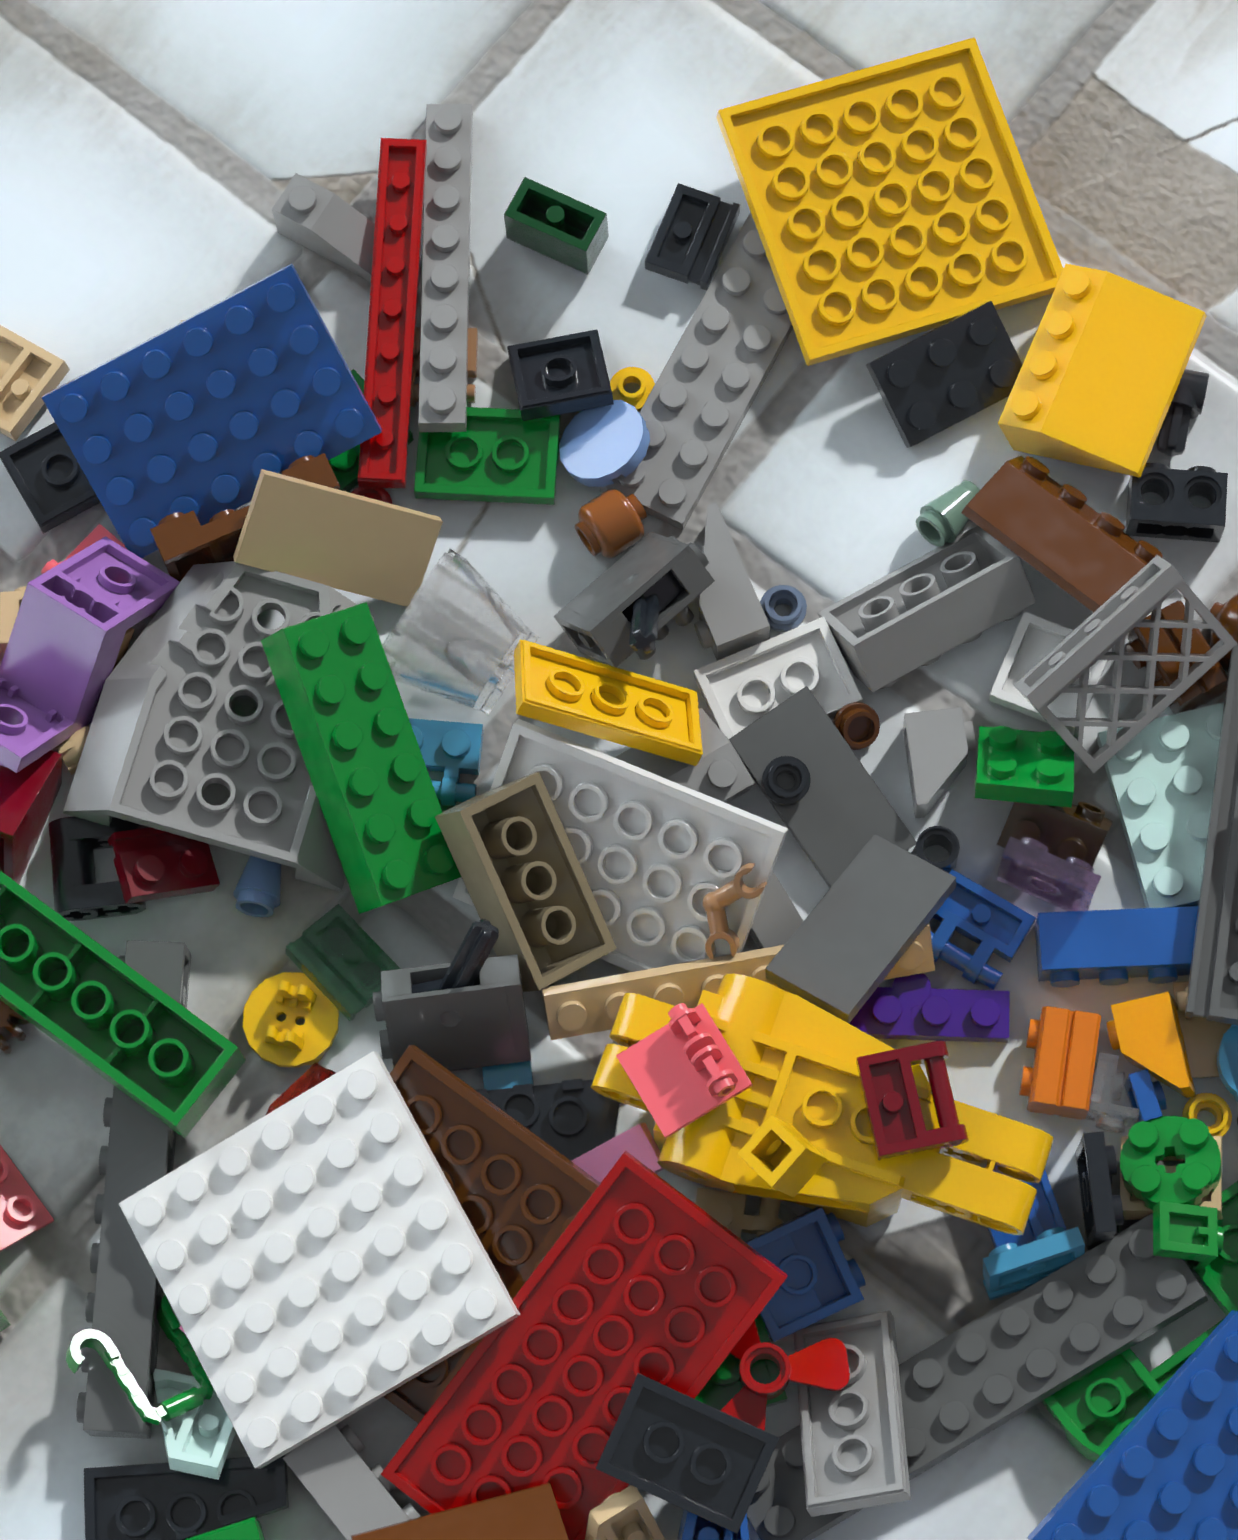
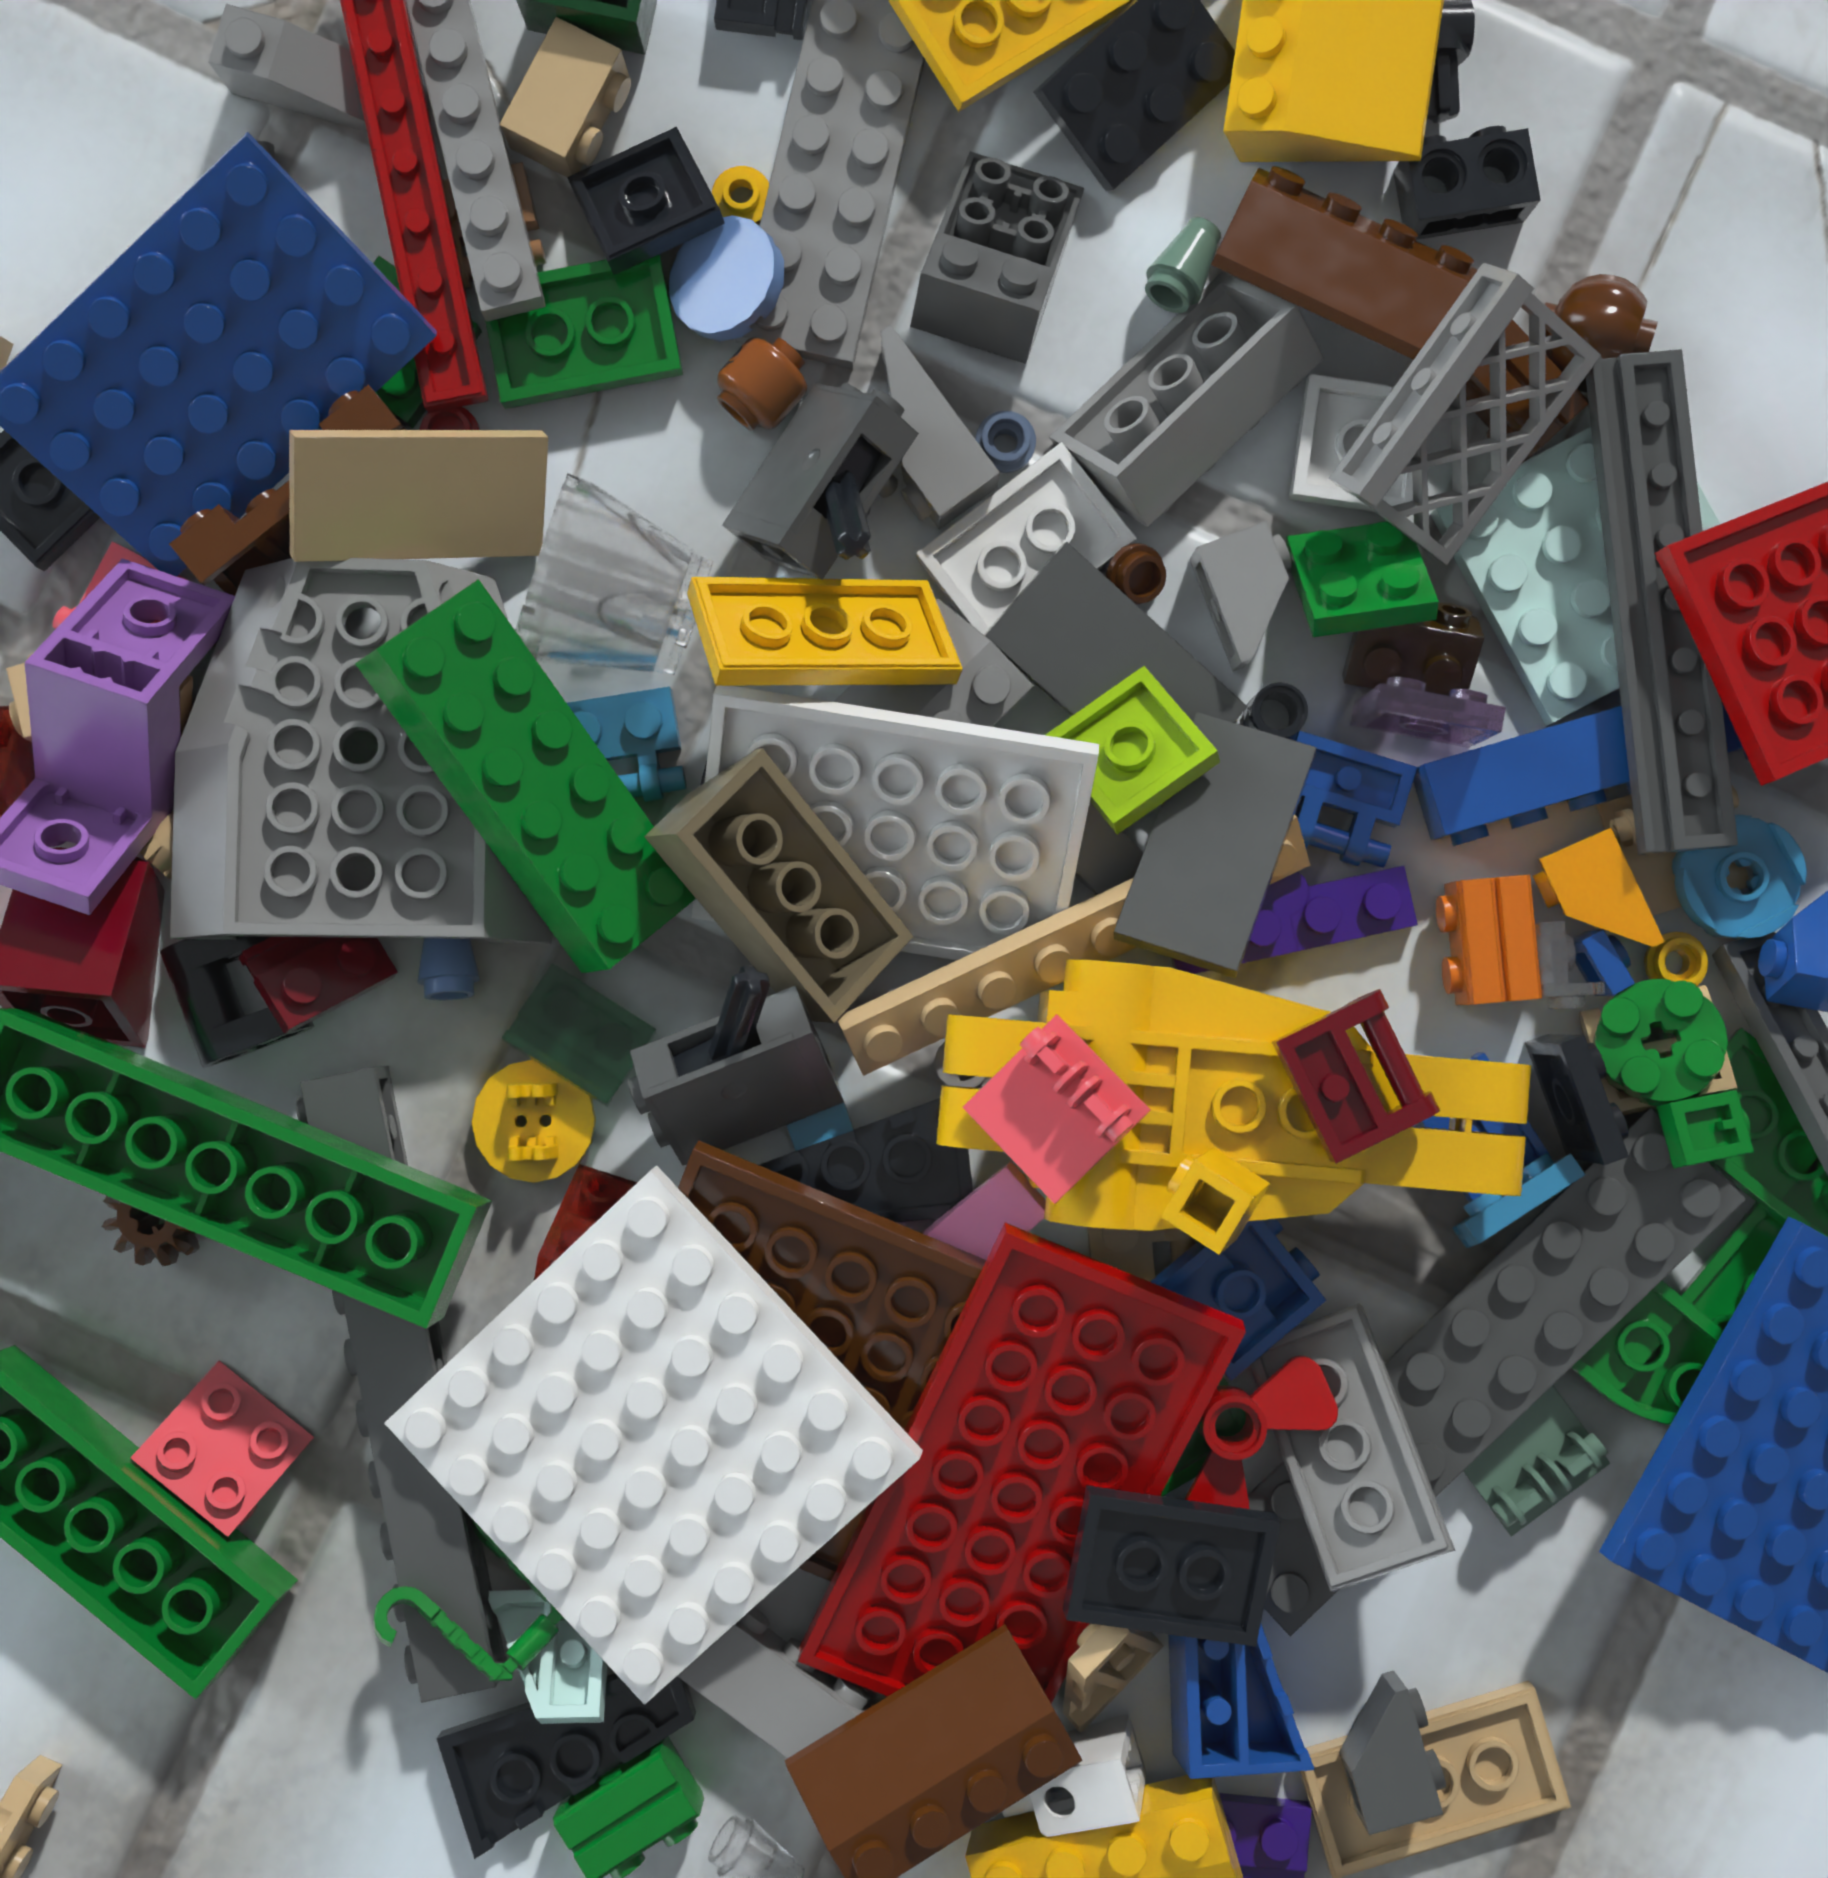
camera: 20 degrees left, 15 degrees up
(521, 292) = (566, 99): none -> tan brick
(715, 904) = (1029, 858): medium nougat arm -> none
(789, 765) = (1090, 666): black plate -> none
(809, 475) = (996, 257): none -> dark grey slope
(821, 846) = (1144, 748): none -> lime plate
(1001, 1474) = (1536, 1462): none -> sand green hinge

